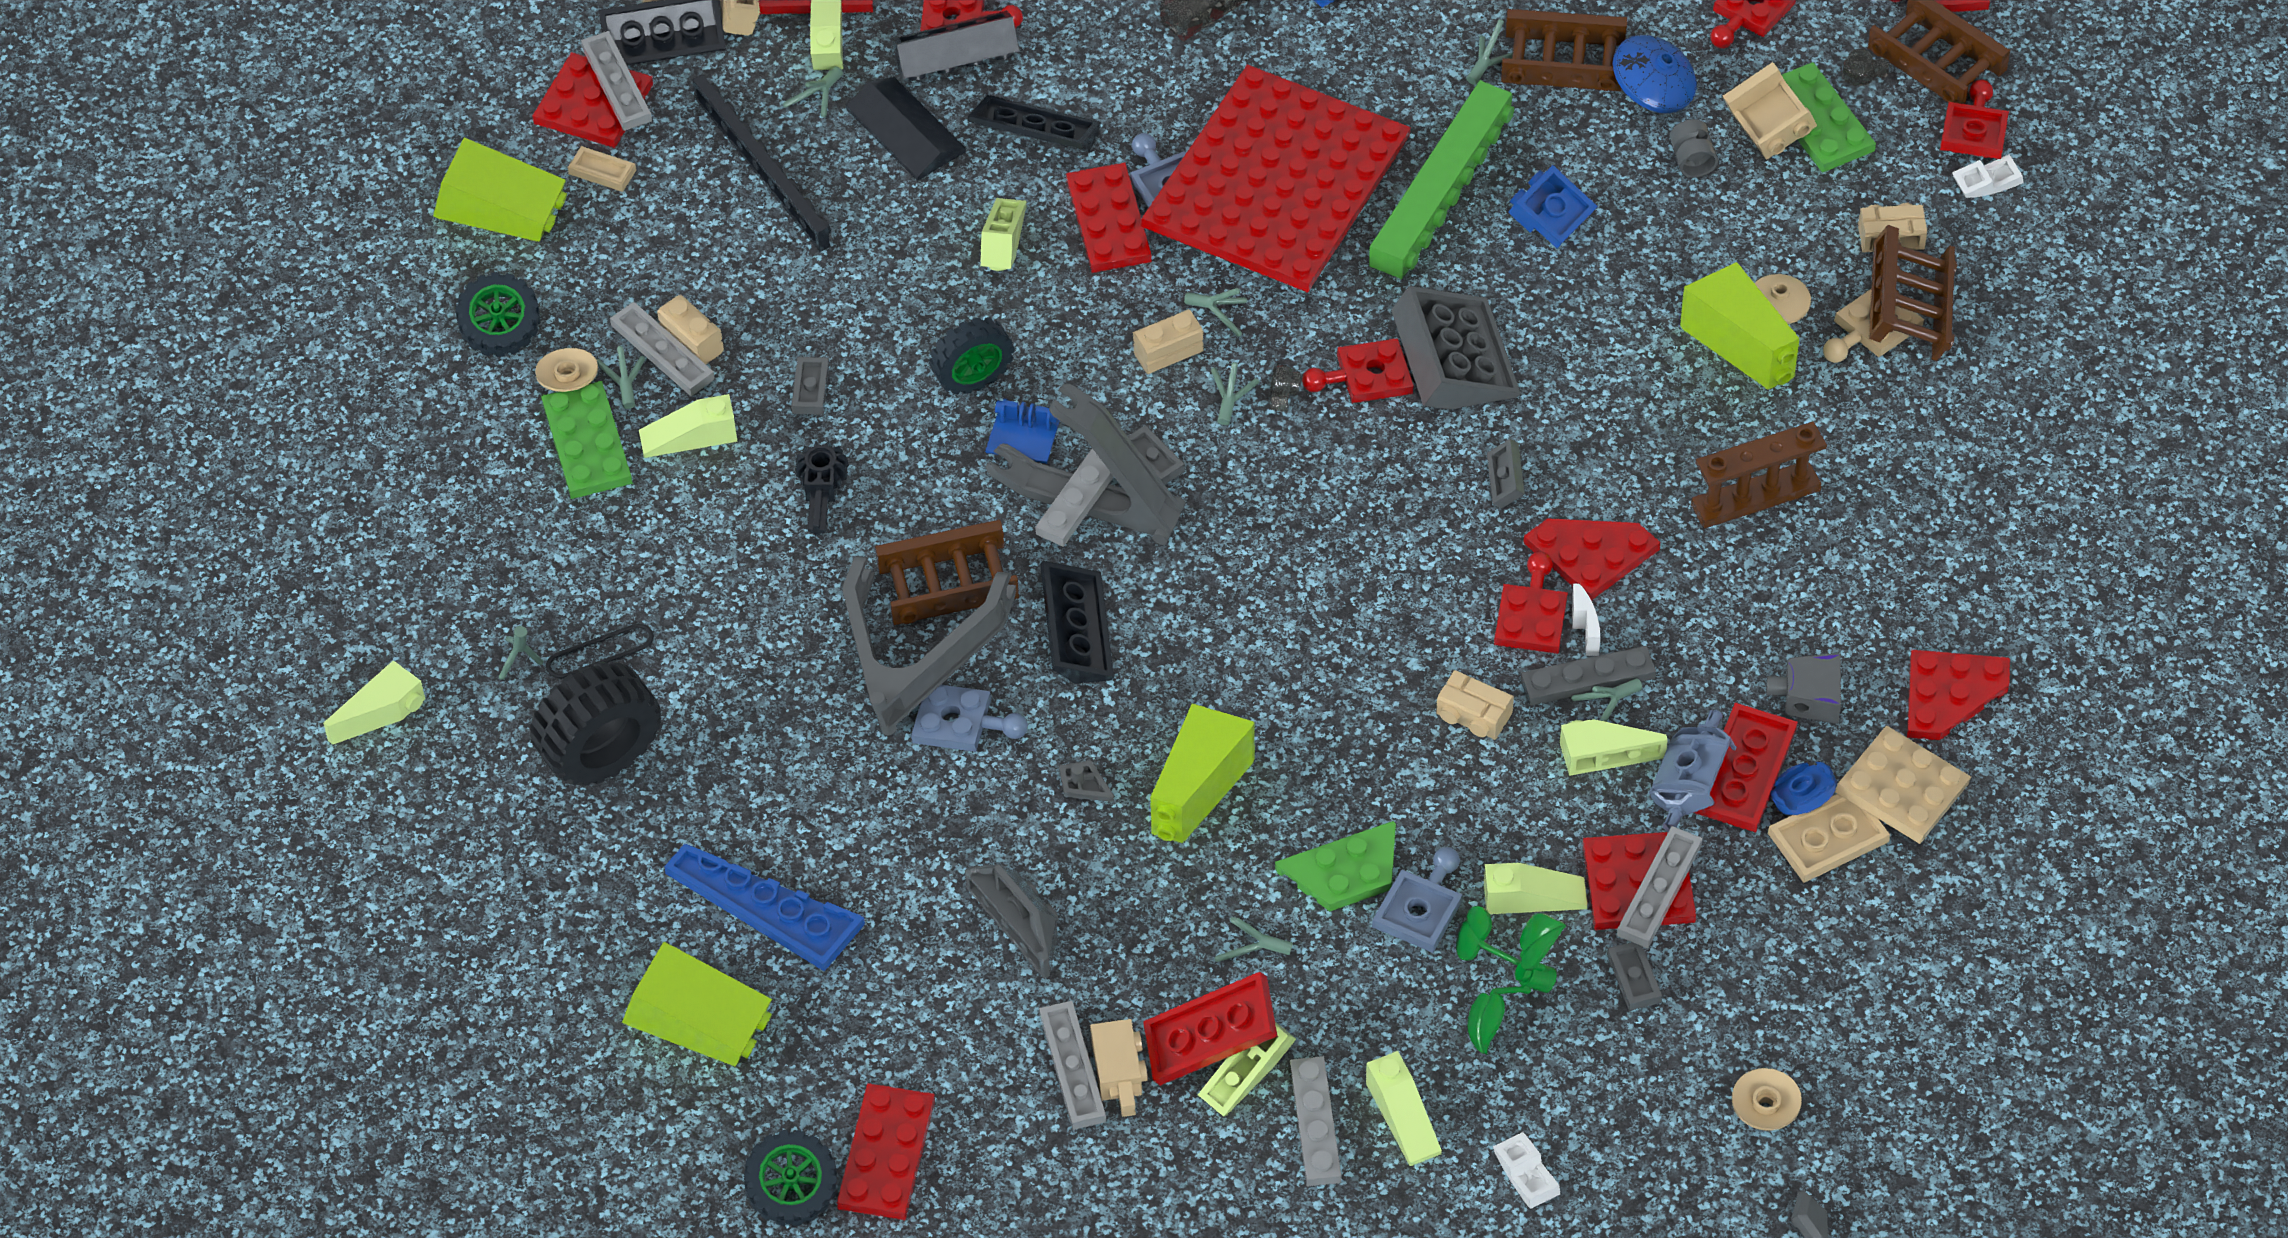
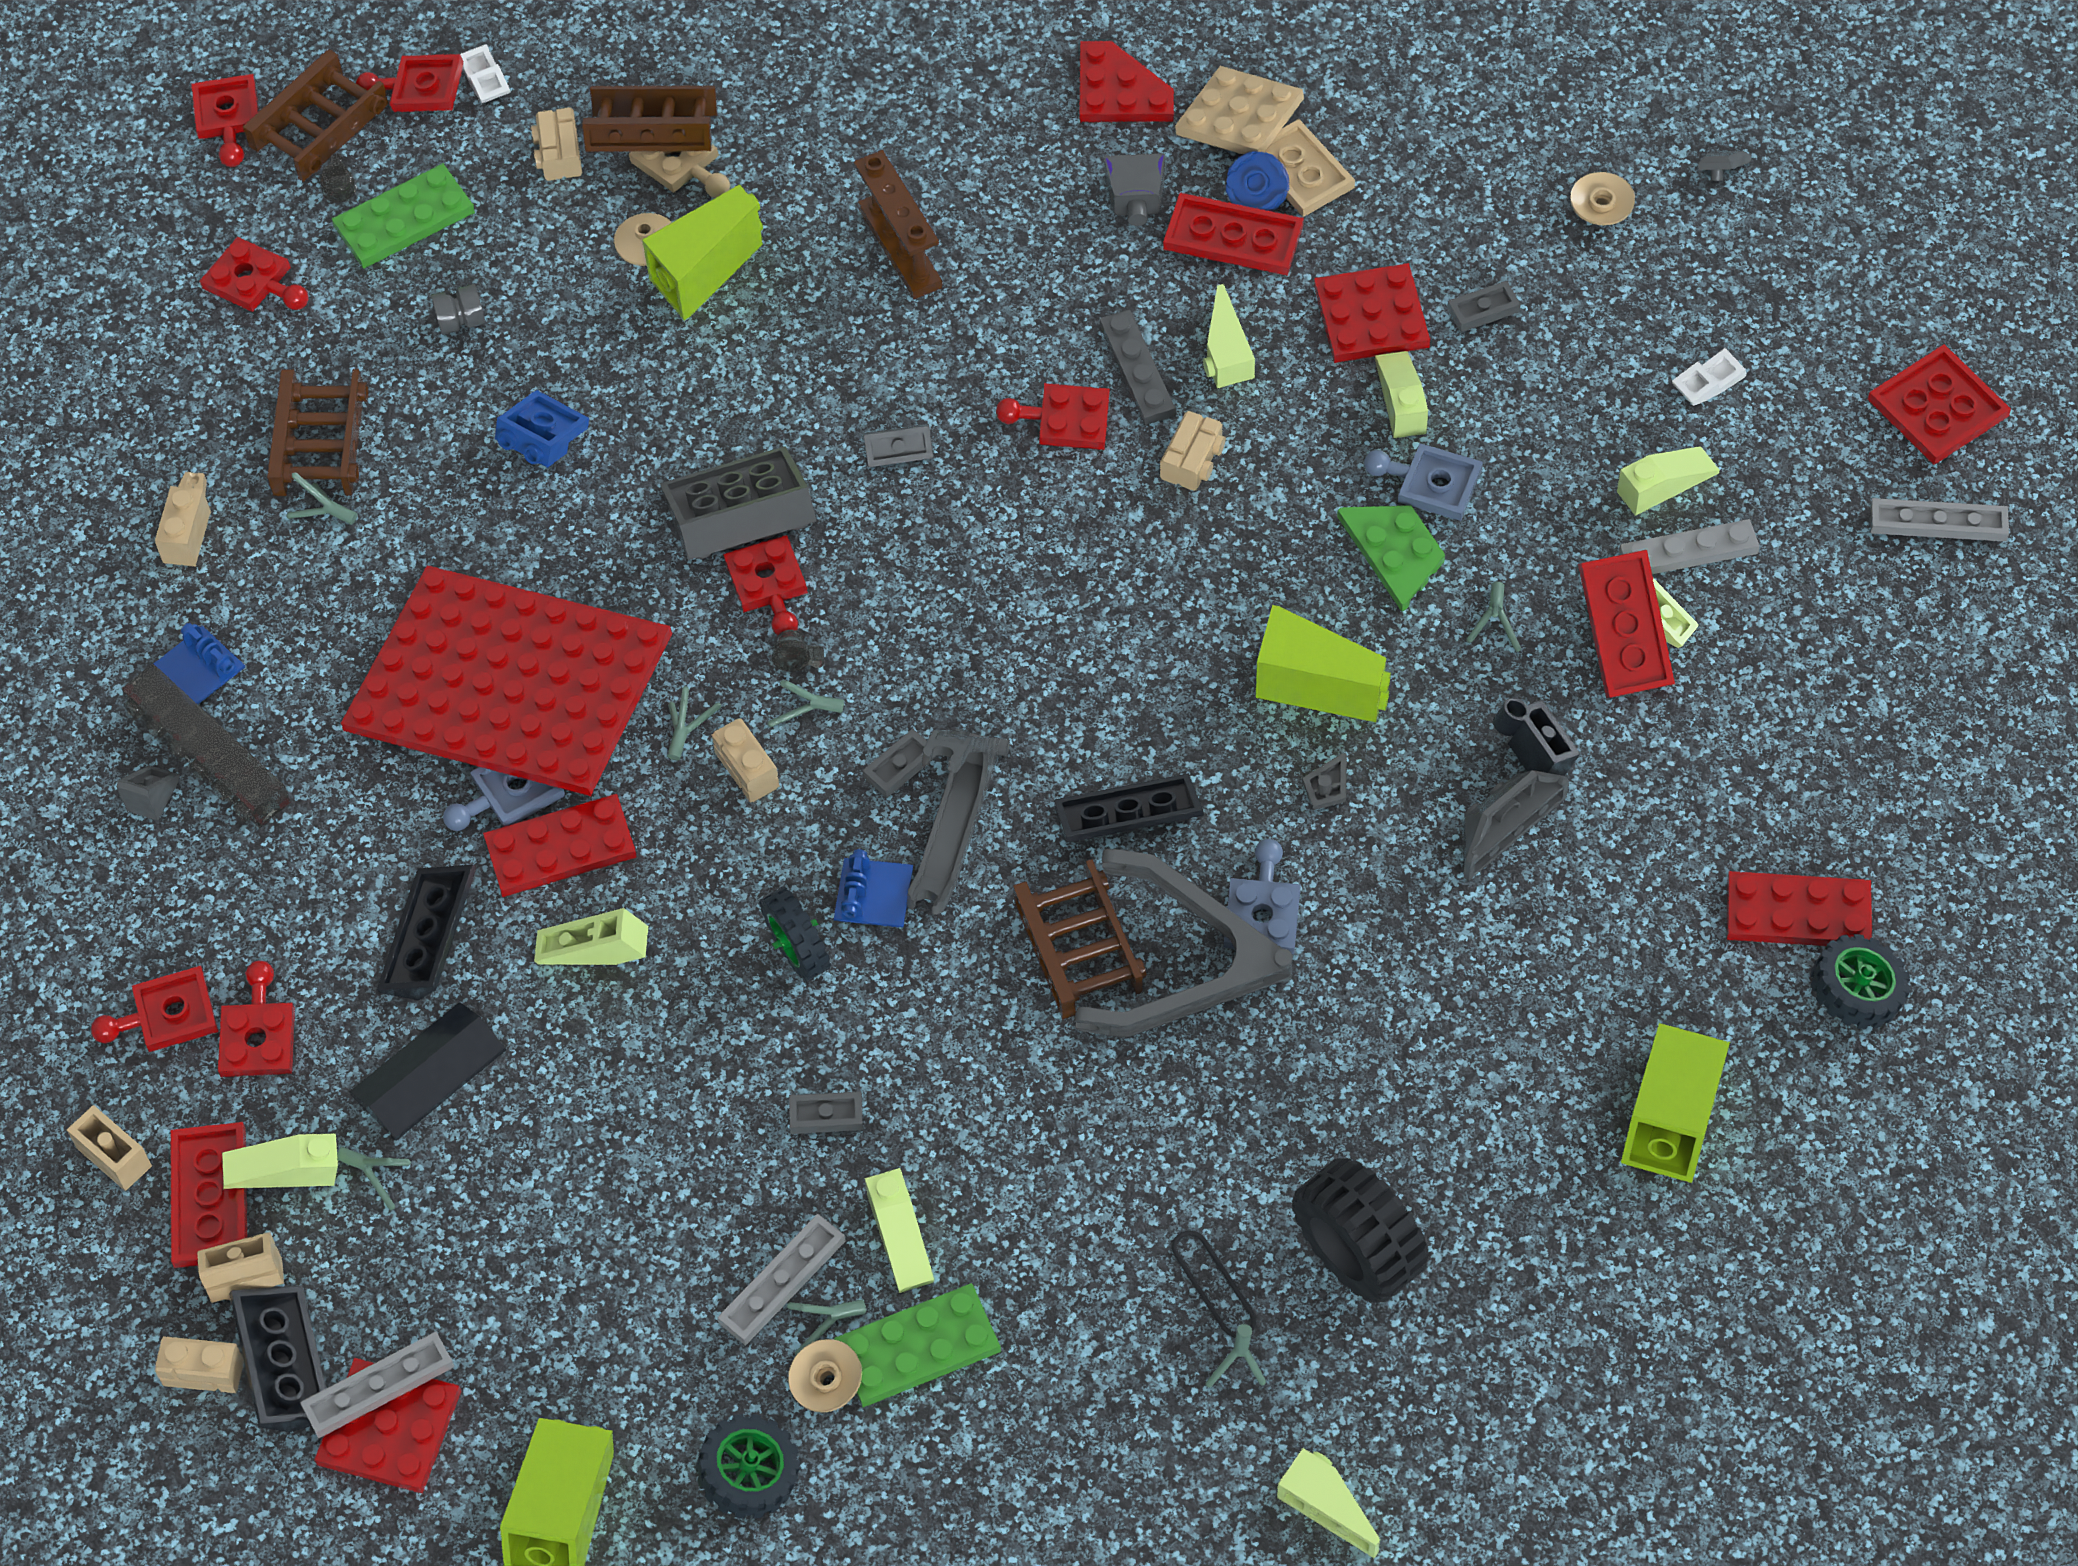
camera: 95 degrees left, 5 degrees up
(602, 168) = (499, 1397): tan tile -> none
(691, 328) = (756, 1246): tan brick -> none
(766, 168) = (484, 1218): black plate -> none
(788, 917) = (1539, 1036): blue wing -> none
(820, 474) = (966, 1081): black gear -> none
(955, 45) = (314, 1019): brick -> none
(1072, 1065) = (1671, 754): light grey plate -> none
(1075, 500) = (959, 820): light grey plate -> none
(1094, 944) = (1537, 737): none -> black hinge
(1117, 1063) = (1665, 712): tan hinge -> none
(1440, 180) = (503, 529): bright green brick -> none
(1535, 942) = (1499, 345): green plant -> none
(1585, 618) = (1080, 362): white slope -> none
(1592, 551) = (984, 372): red plate -> none
(1614, 693) = (1160, 341): sand green plant -> none
(1654, 73) = (354, 346): blue dish -> none
(1659, 887) = (1394, 280): light grey plate -> none
(1688, 788) = (1271, 282): sand blue plate -> none
(1769, 111) = (411, 245): tan panel -> none

